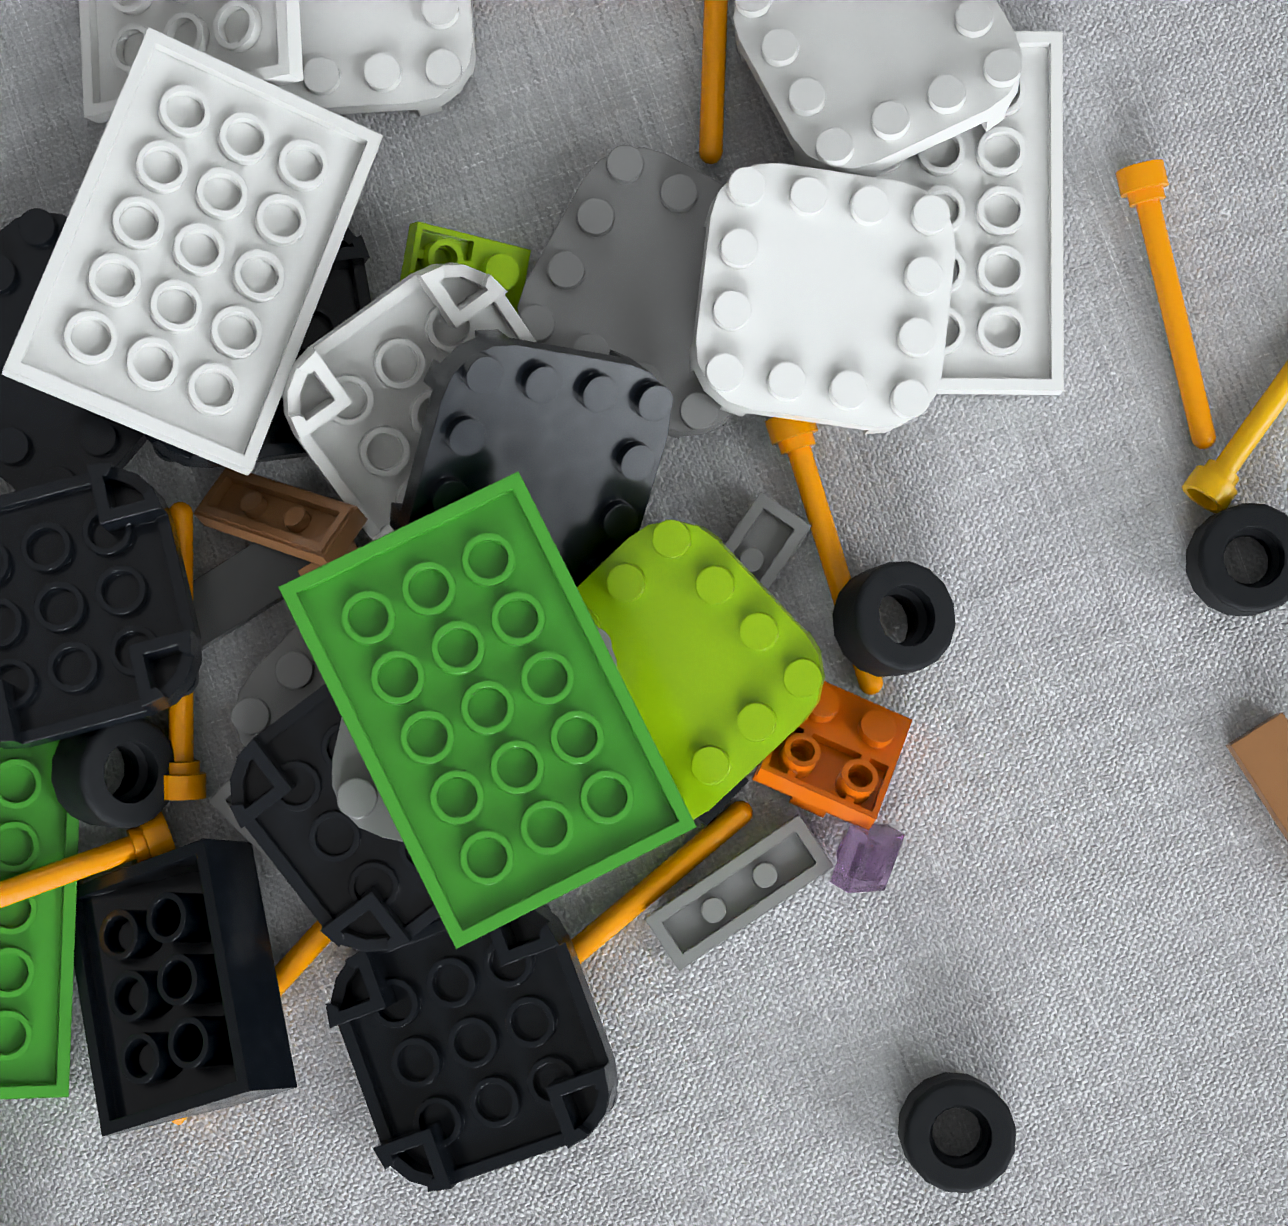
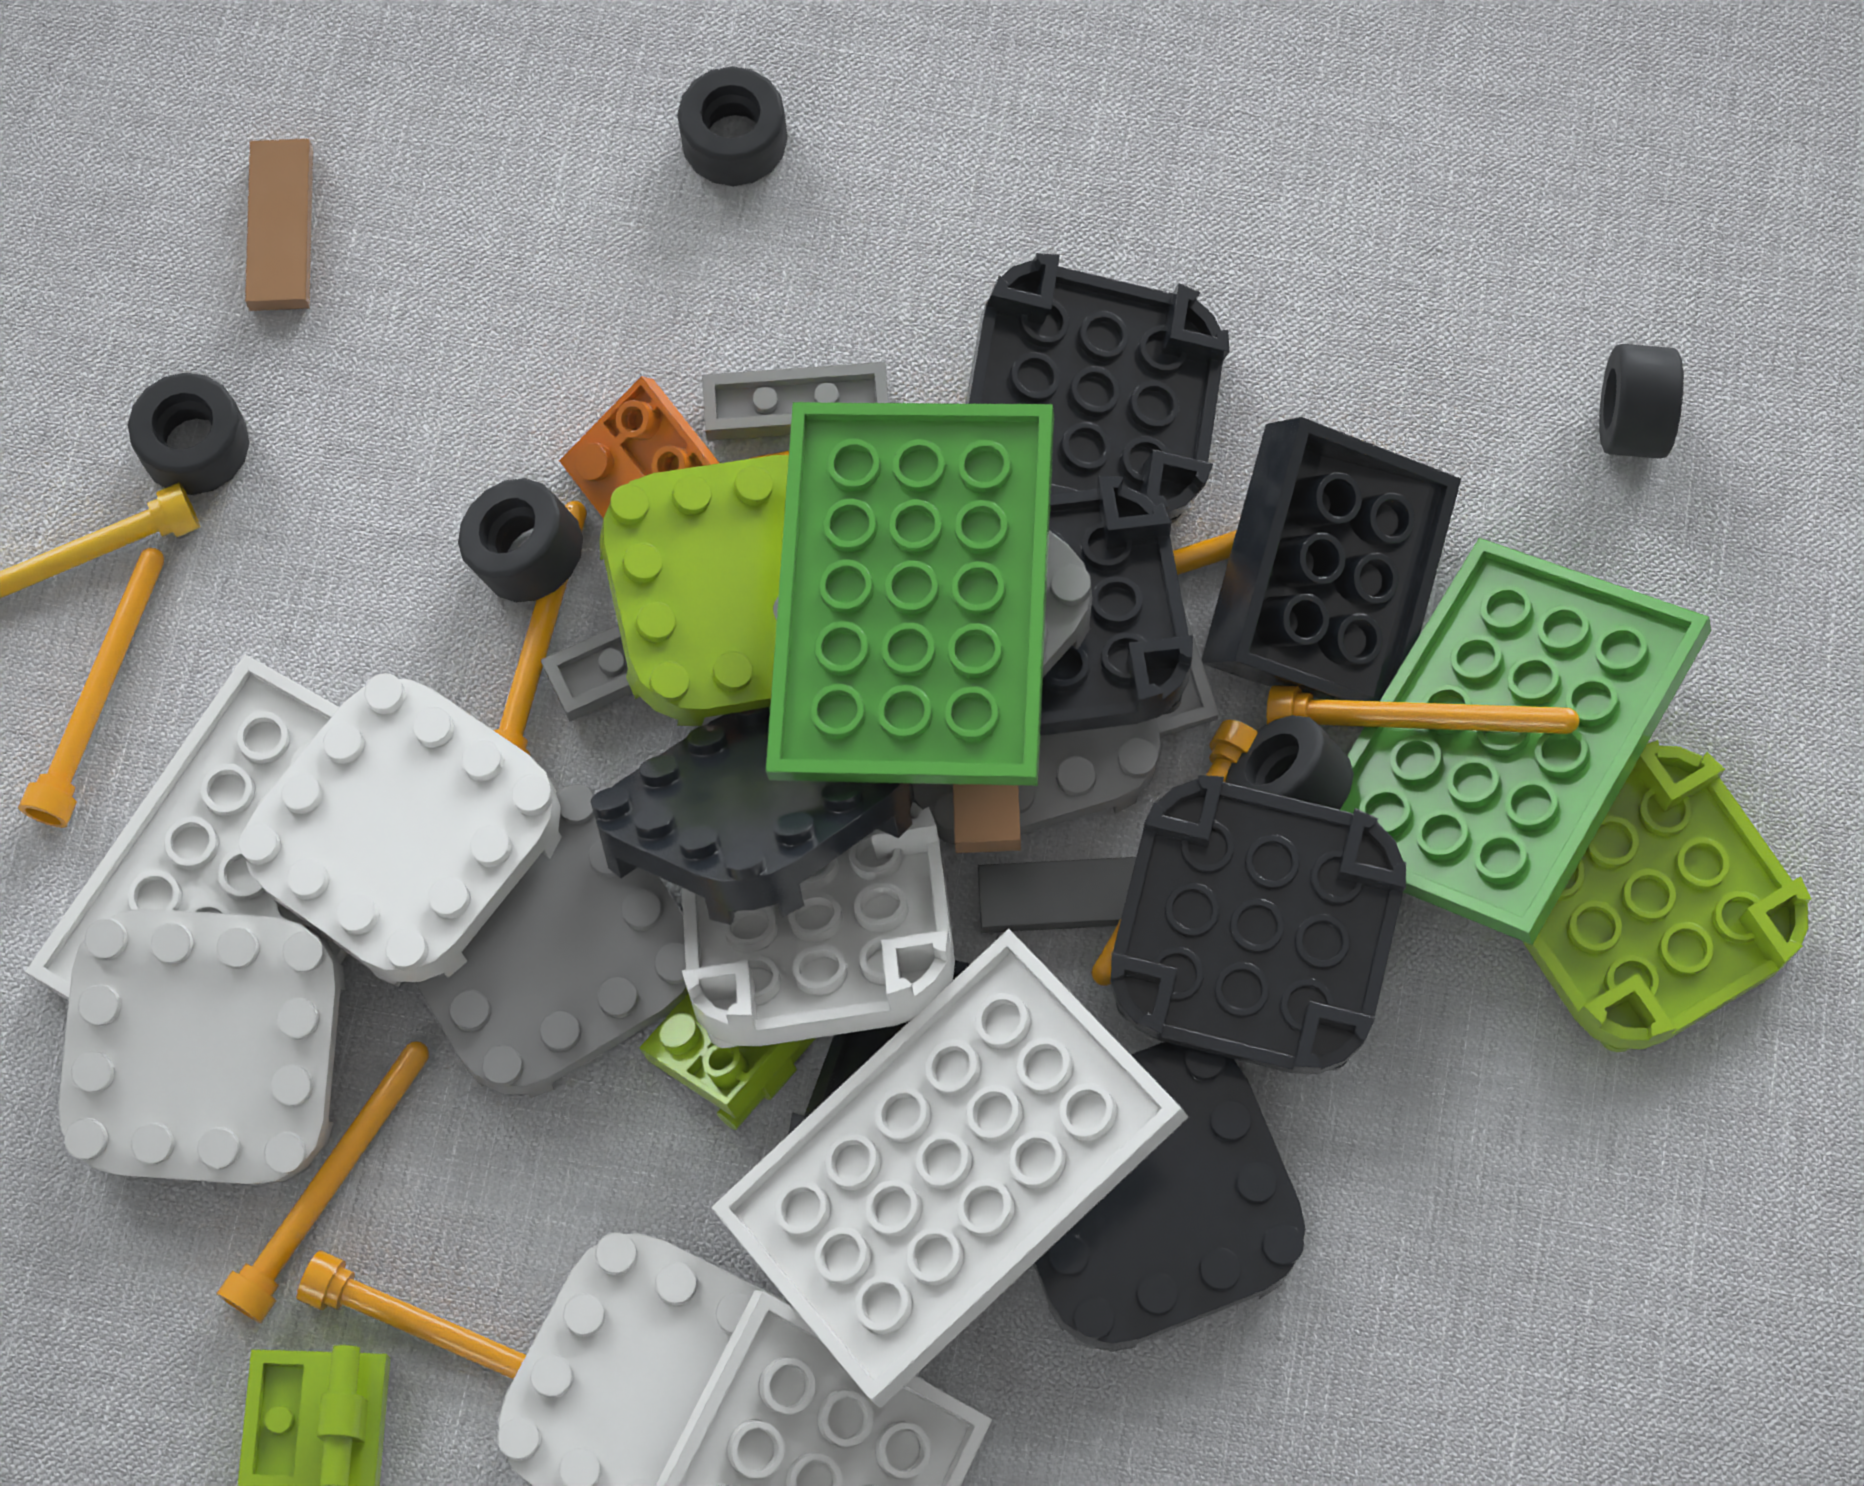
camera: 150 degrees left, 15 degrees down
(280, 516) = (1005, 898): medium nougat tile -> none
(866, 858) = (673, 365): clear purple plate -> none

